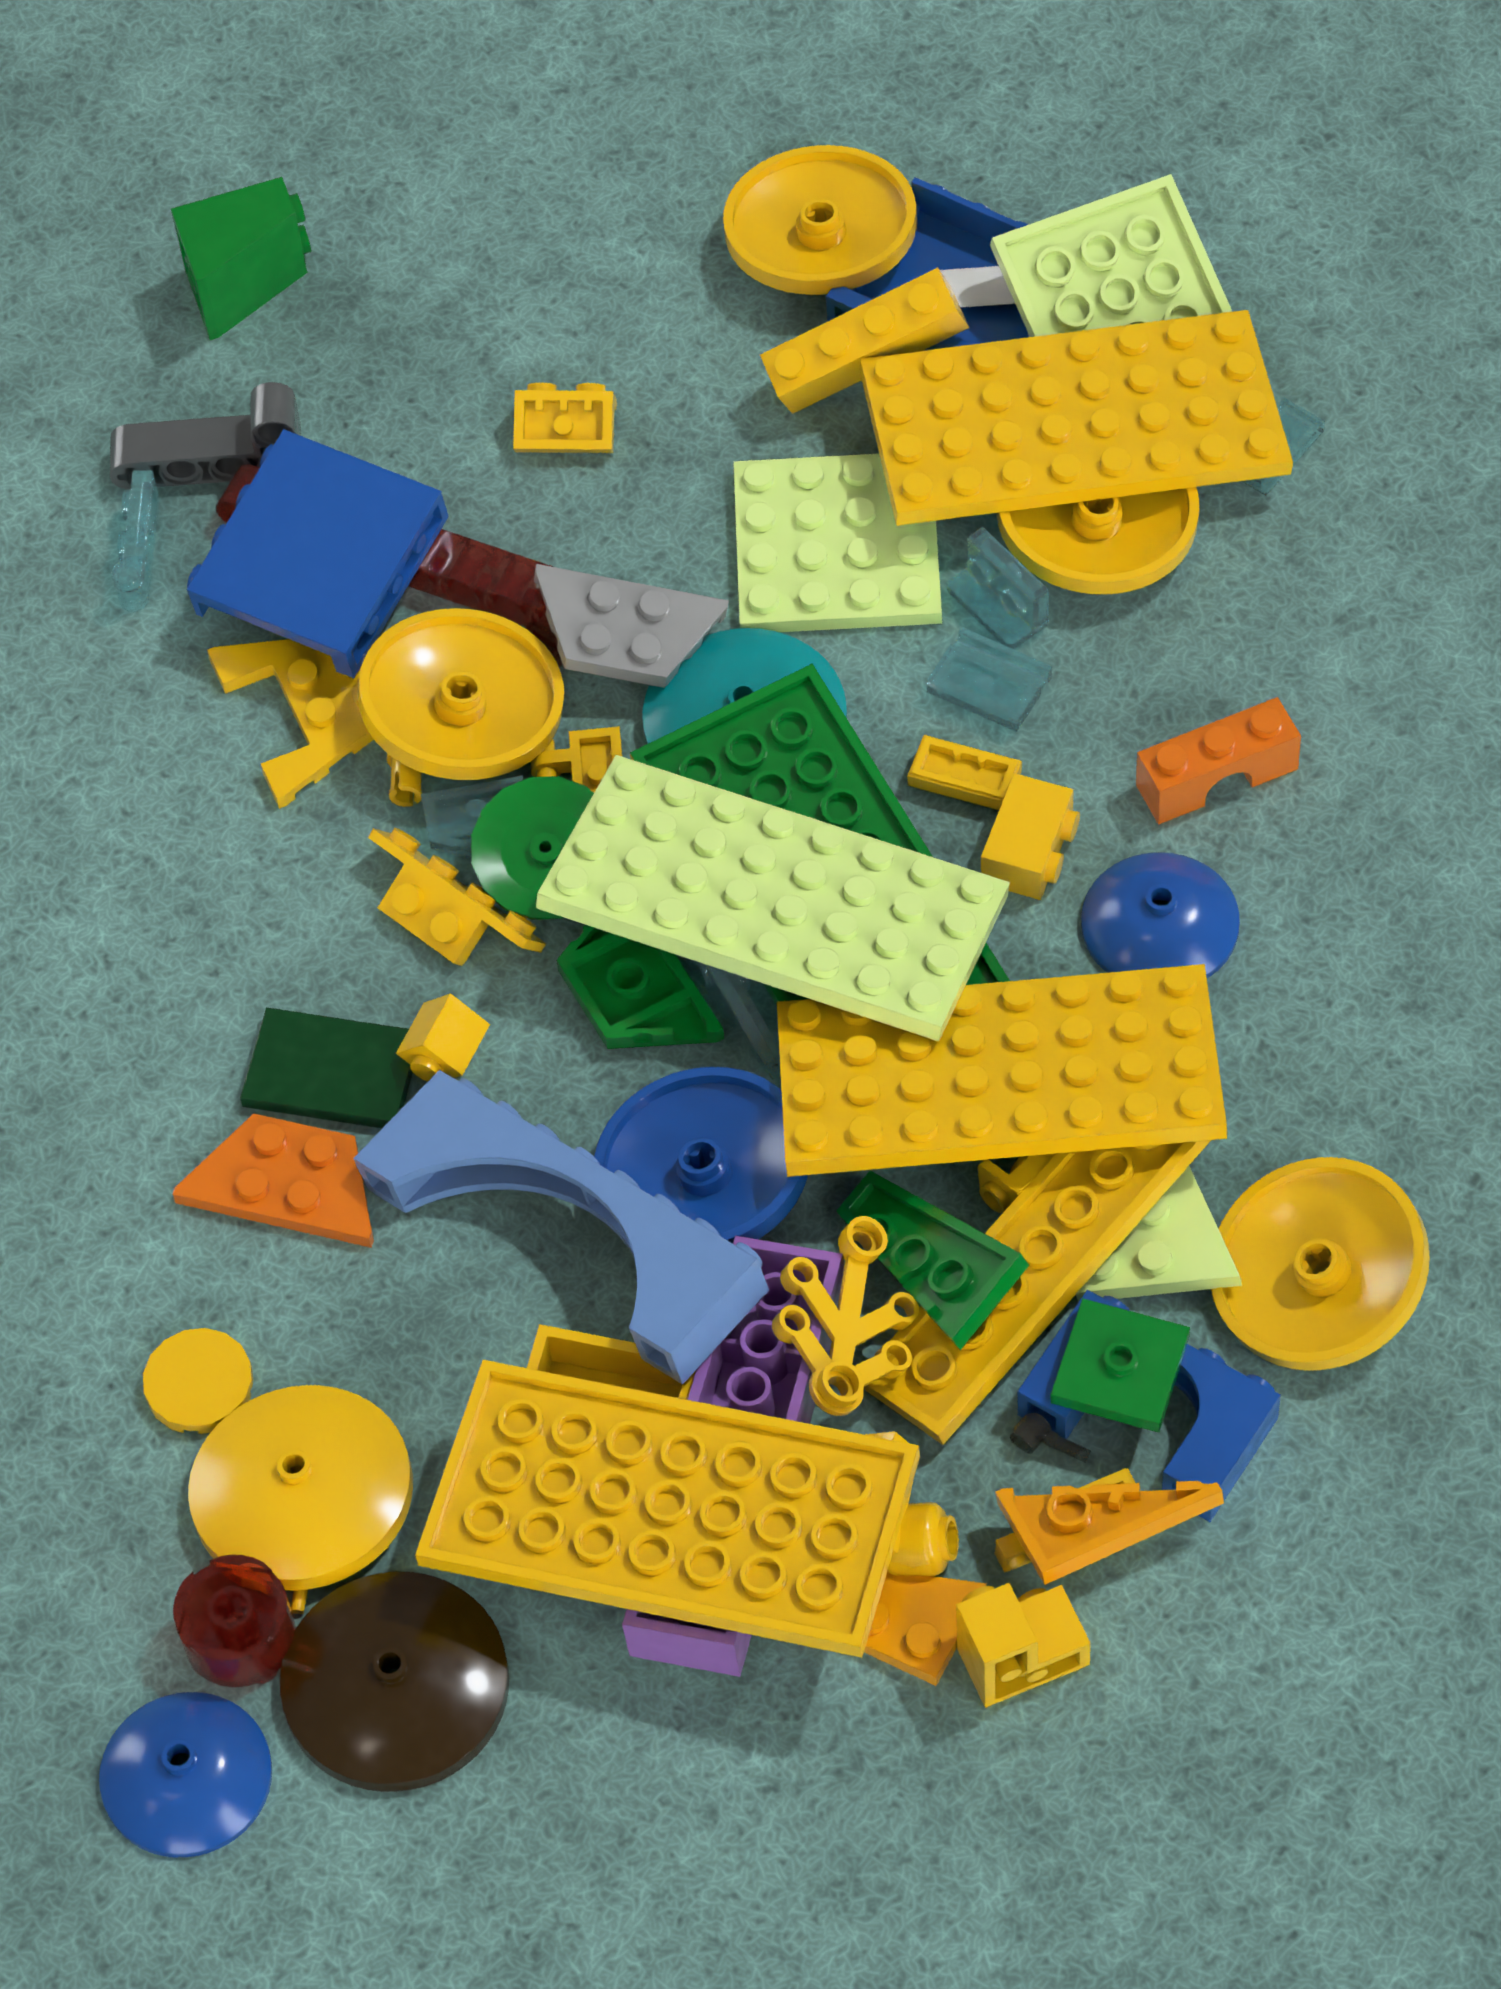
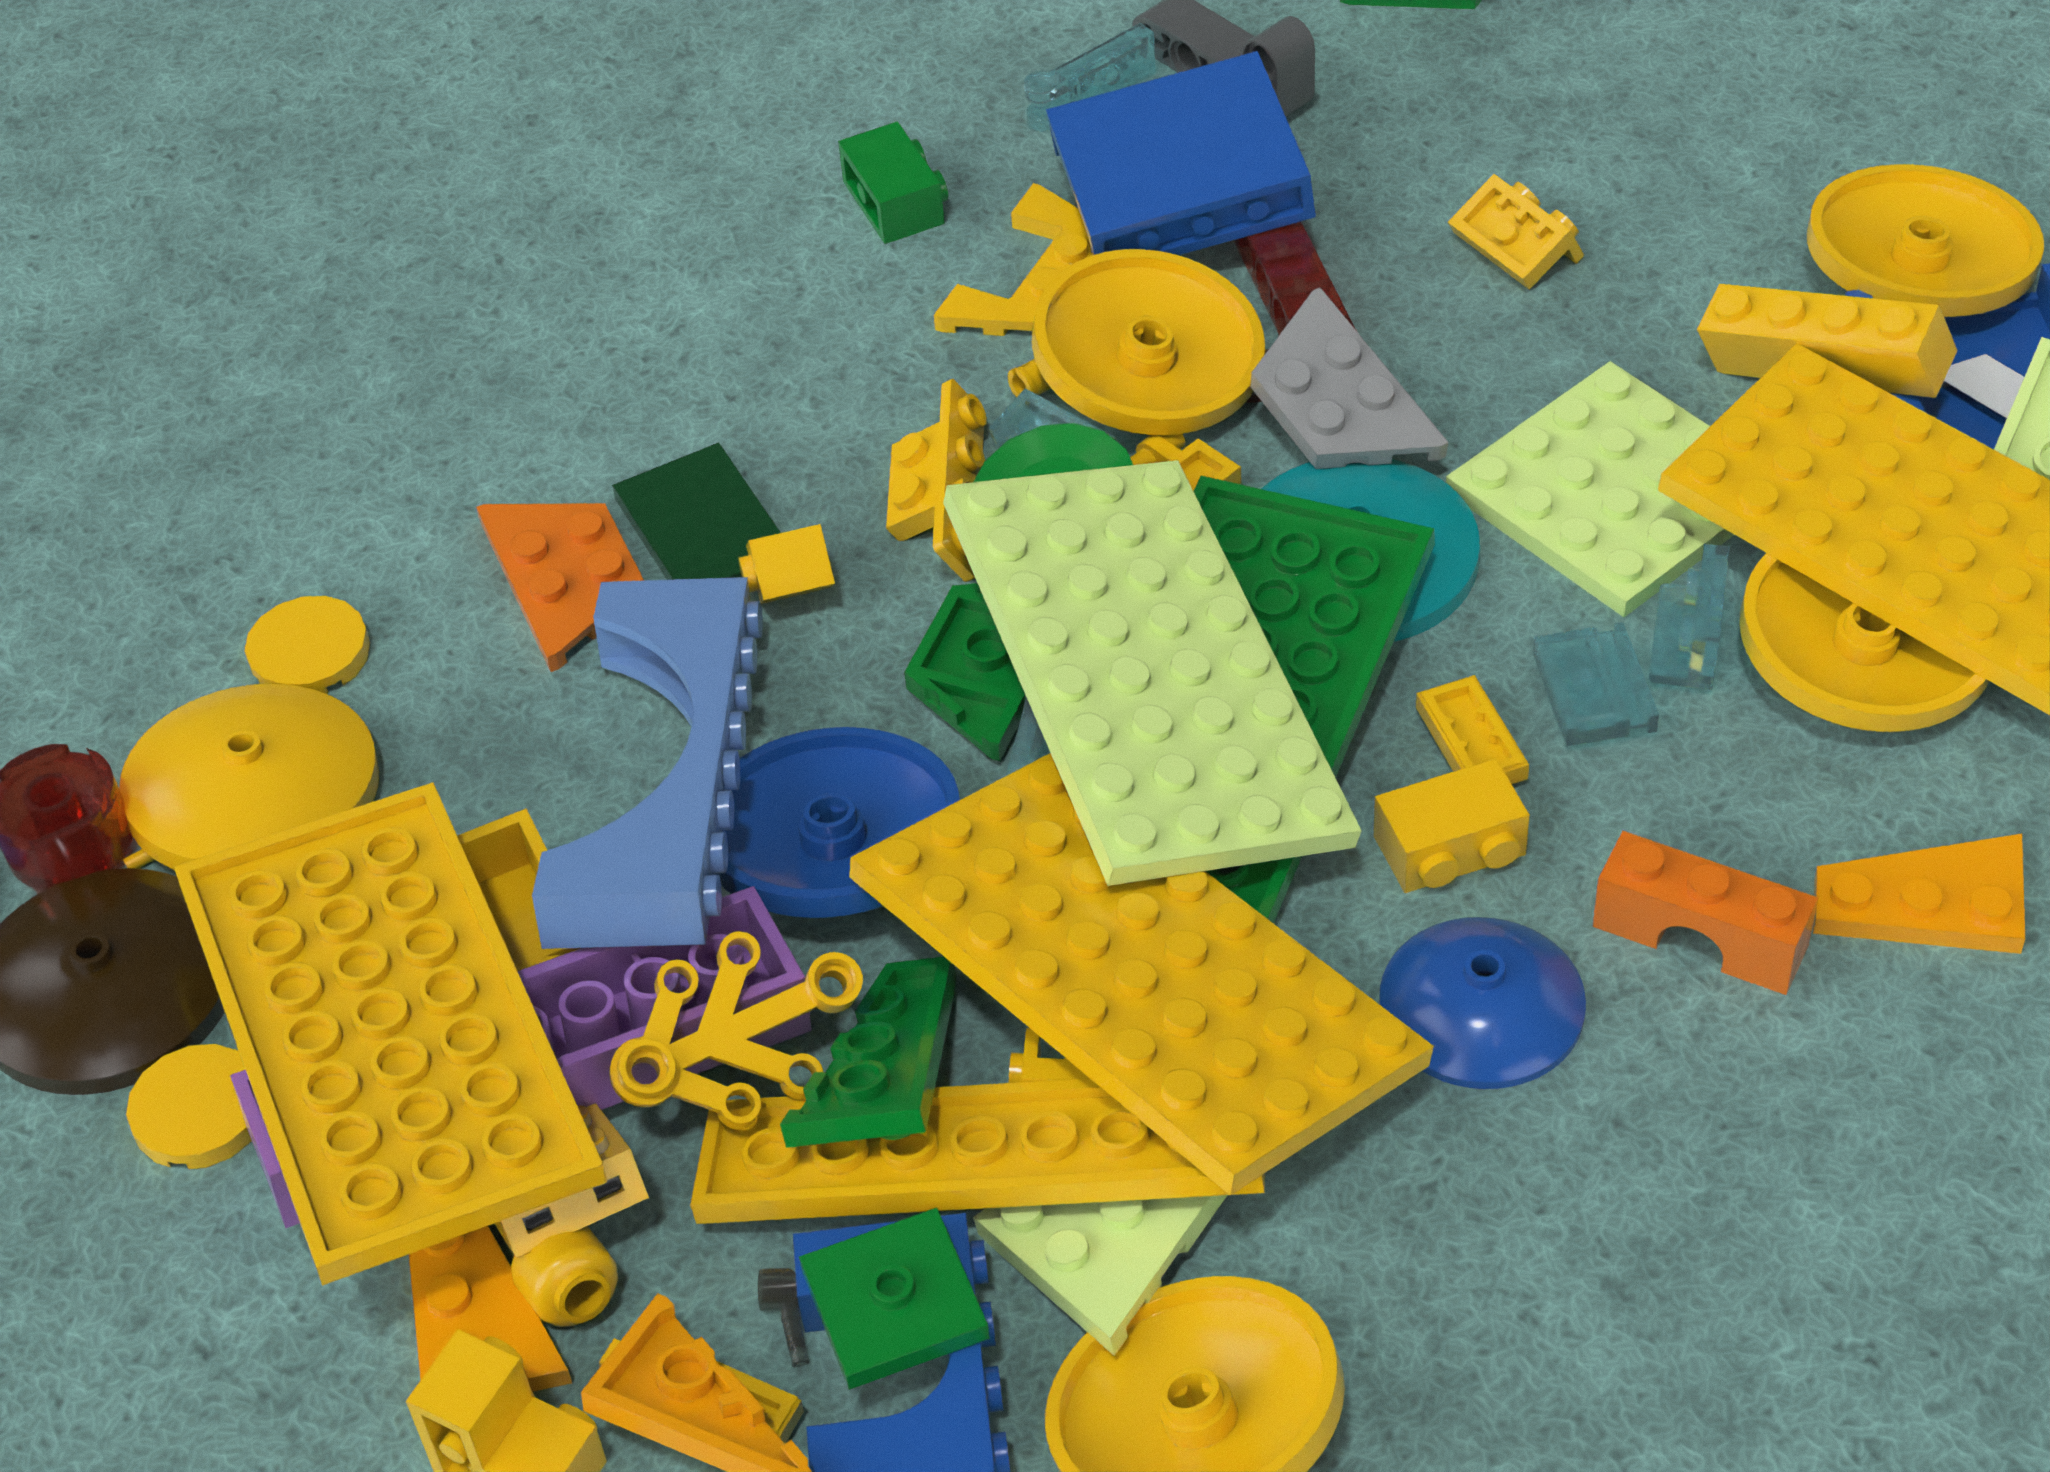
camera: 50 degrees right, 10 degrees down
(114, 731) = (893, 182): none -> green brick
(566, 1681) = (189, 1108): none -> yellow tile
(1304, 642) = (1929, 896): none -> light orange wing

